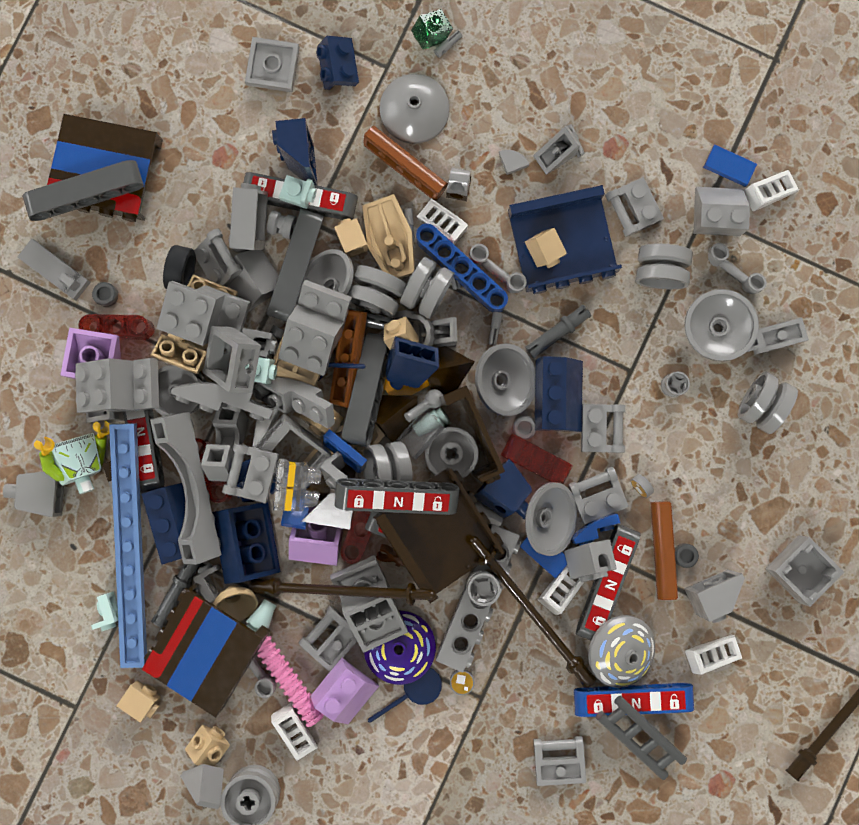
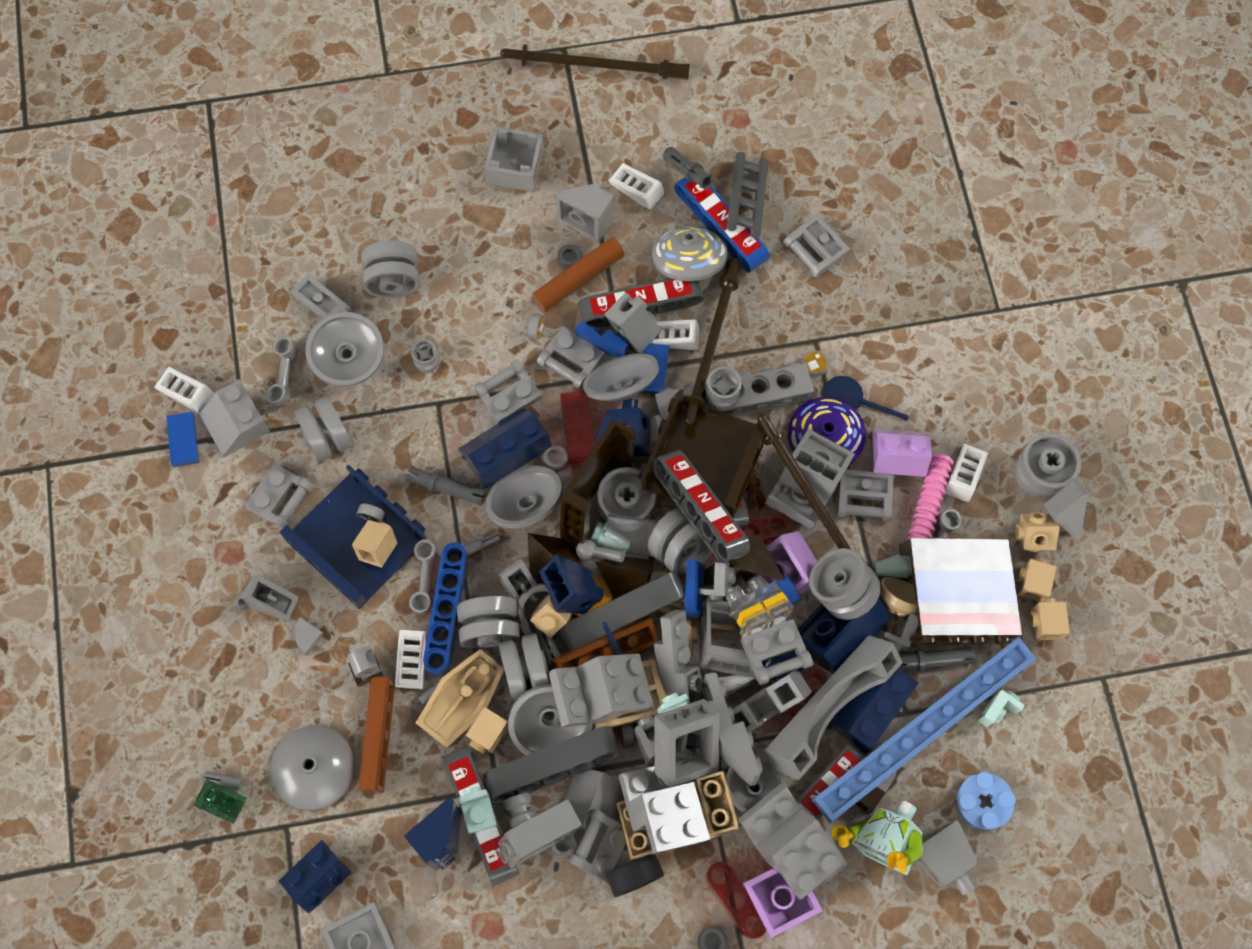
camera: 125 degrees left, 15 degrees down
(43, 543) = (1001, 800): none -> light blue plate
(175, 716) = (1036, 579): none -> tan brick
(266, 564) = (844, 584): none -> light grey wheel
(572, 261) = (370, 512): none -> light grey tile
(692, 706) = (701, 177): none -> dark grey pin

